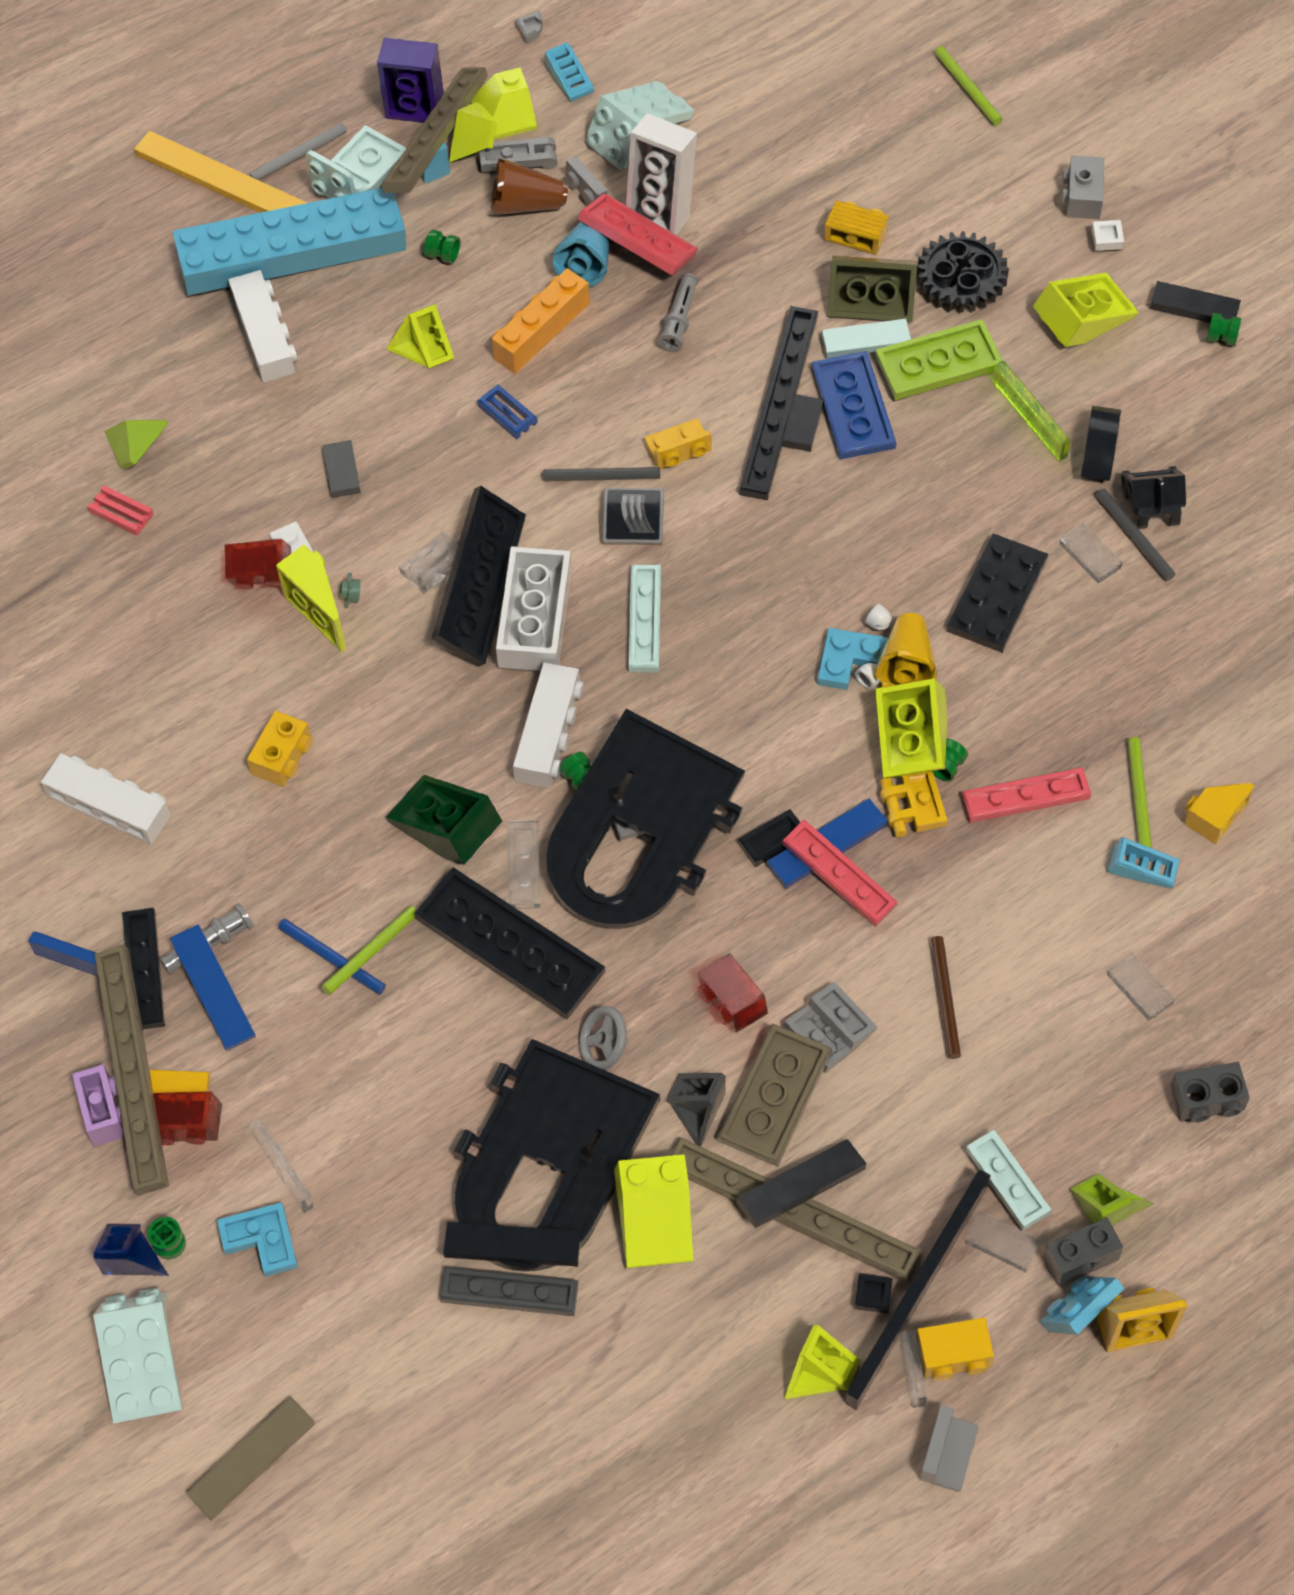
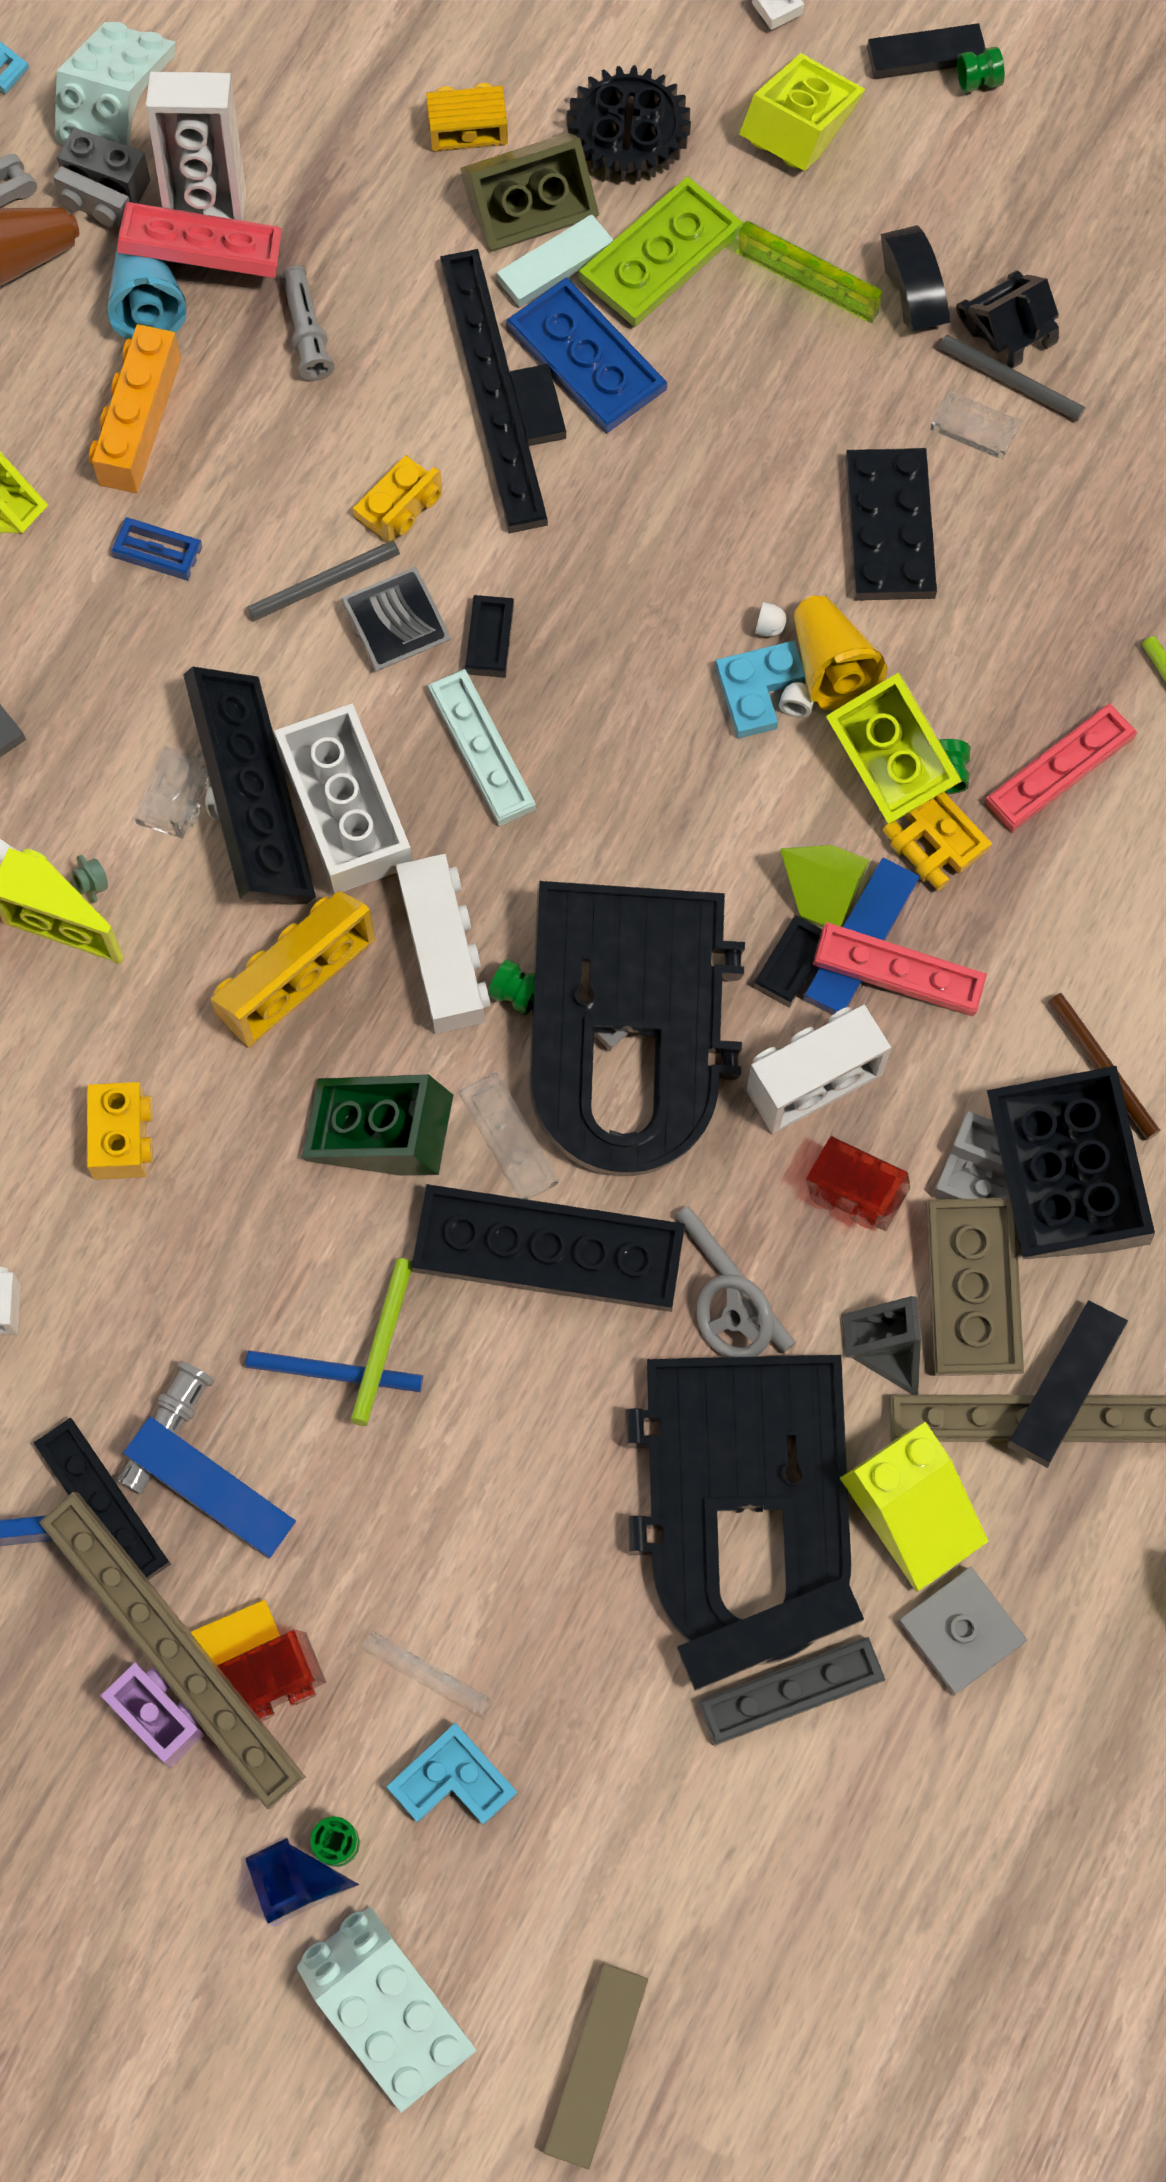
camera: 30 degrees left, 10 degrees up
(445, 699) = (294, 966): none -> yellow slope
(604, 165) = (106, 163): none -> dark grey brick
(617, 1002) = (726, 1266): none -> light grey bar
(643, 1308) = (962, 1630): none -> light grey plate
(689, 552) = (489, 636): none -> black tile
(745, 907) = (817, 1067): none -> white brick
(821, 795) = (823, 881): none -> lime slope
(881, 1045) = (1071, 1165): none -> black slope

